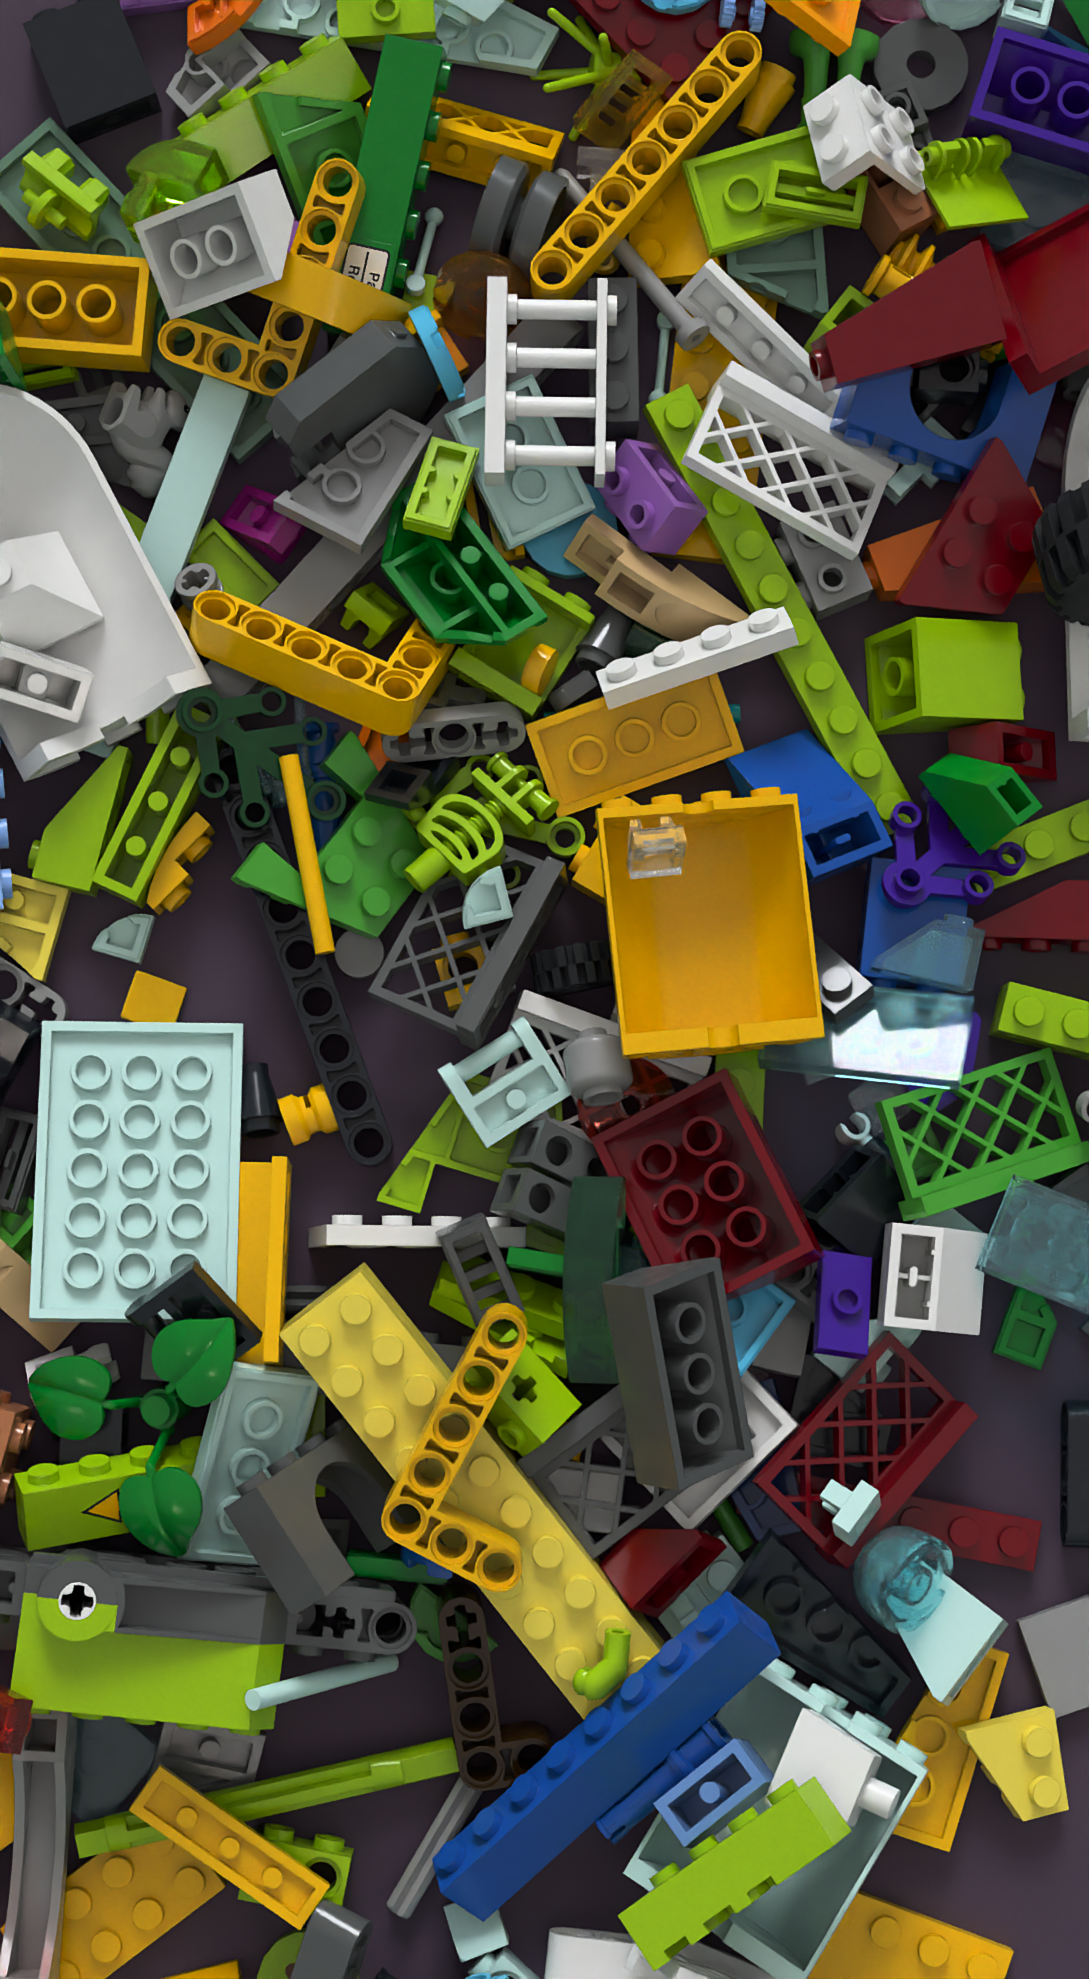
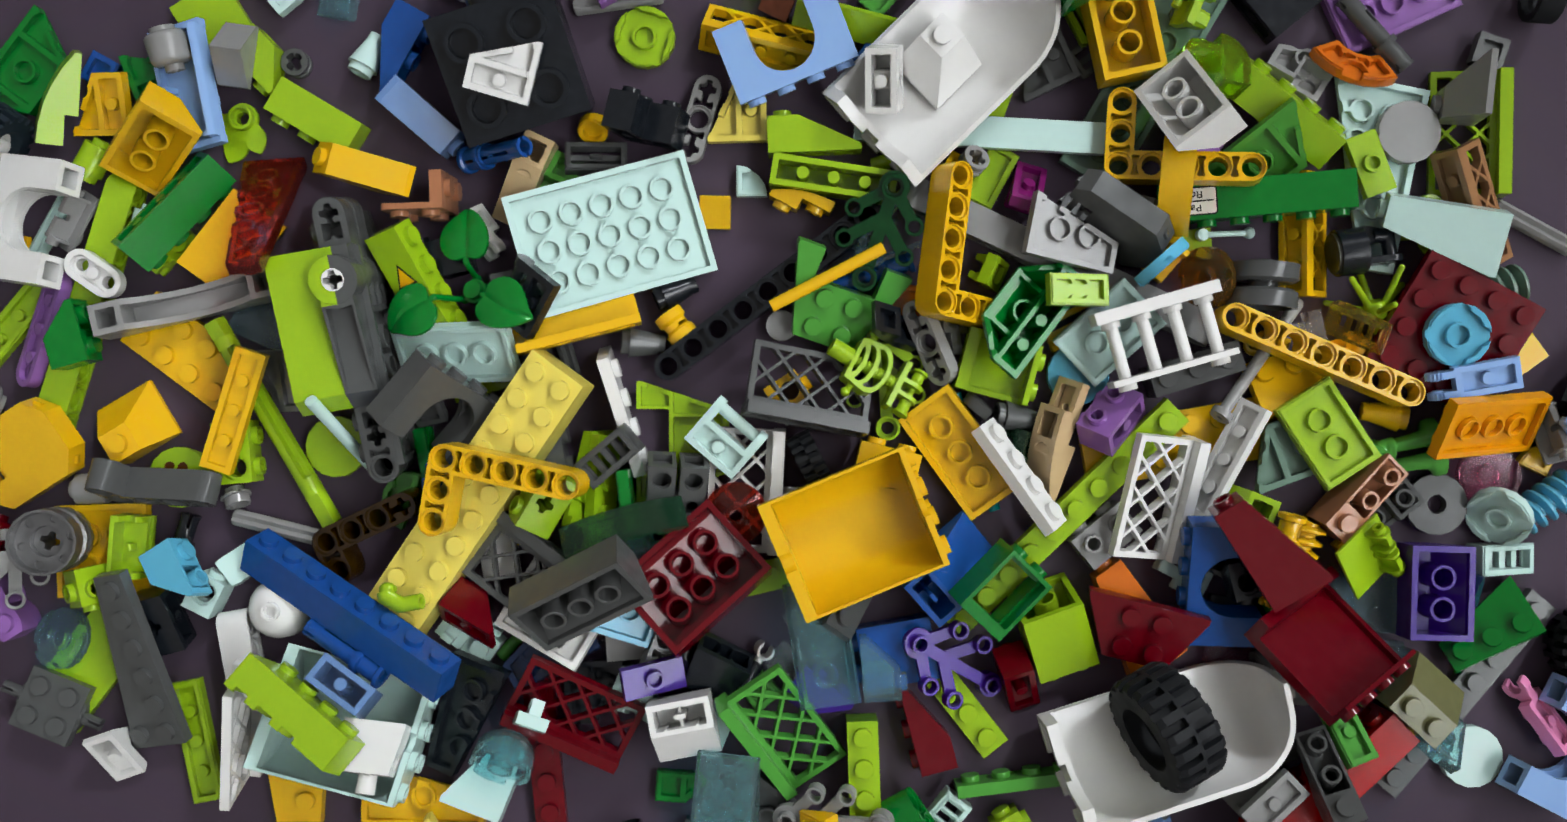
camera: 75 degrees right, 5 degrees up
(139, 428) = (1060, 94): light grey animal -> none
(320, 1176) = (641, 343): none -> dark grey cone
(338, 1721) = (328, 453): none -> lime tile
(368, 1896) = (236, 497): none -> light grey plate
(486, 900) = (832, 393): light aqua tile -> none
(503, 78) = (1350, 250): none -> black piece
(539, 668) = (984, 382): yellow tile -> none
(571, 1887) = (274, 615): none -> white cylinder
(596, 1068) = (750, 489): light grey head -> none
(655, 850) = (887, 490): clear tile -> none
(665, 328) = (1221, 395): light aqua hinge -> none
(808, 211) = (1320, 465): lime tile -> none
(859, 129) = (1381, 481): white bracket -> none
(890, 718) = (1016, 604): none -> green window
(980, 797) = (983, 673): green slope -> none

